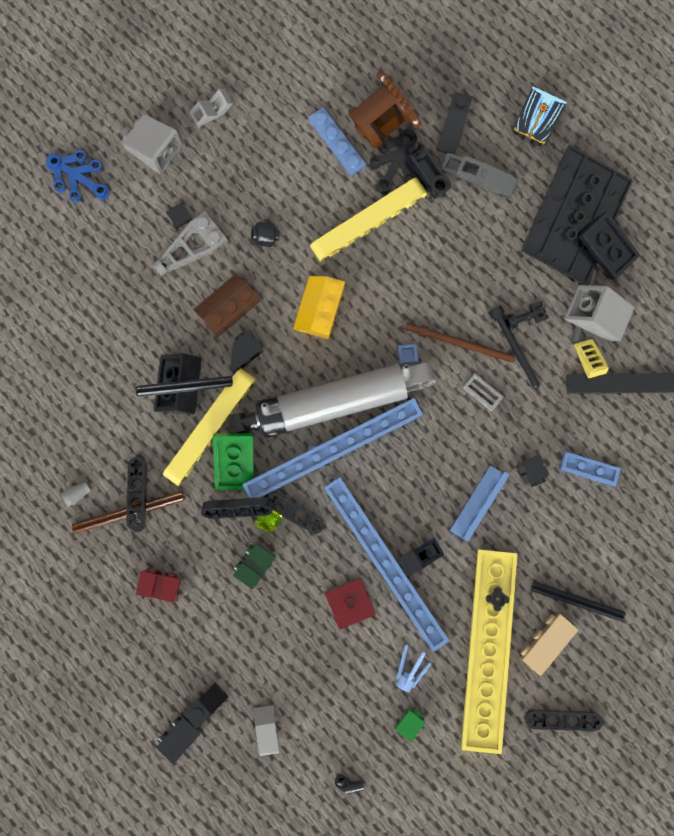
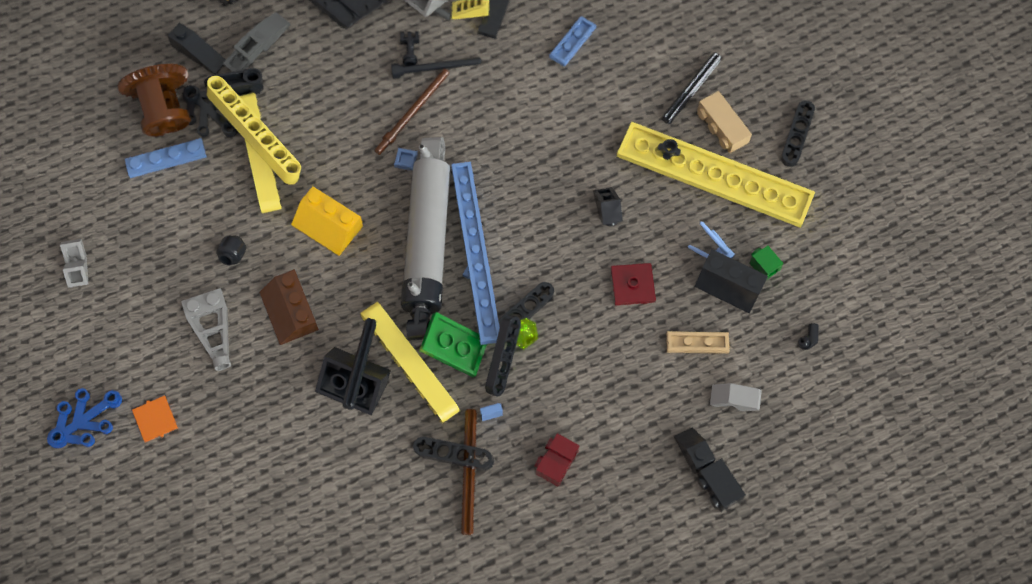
camera: 70 degrees left, 15 degrees down
(75, 493) = (430, 521): light grey cone -> none
(96, 232) = (154, 419): none -> orange piece
(152, 142) = (84, 328): light grey slope -> none
(179, 215) = (174, 328): black tile -> none
(185, 514) = (491, 411): none -> medium blue tile
(244, 351) = (343, 305): black slope -> none
(254, 566) = (566, 359): dark green brick -> none
(311, 680) = (697, 342): none -> tan tile
(379, 697) = (730, 281): none -> black slope
(386, 564) = (603, 239): medium blue plate -> none
(388, 201) = (249, 121): none -> light yellow beam
(479, 503) = (574, 139): medium blue fence -> none
(487, 386) = (485, 104): light grey tile -> none
(533, 471) = (558, 82): black brick -> none

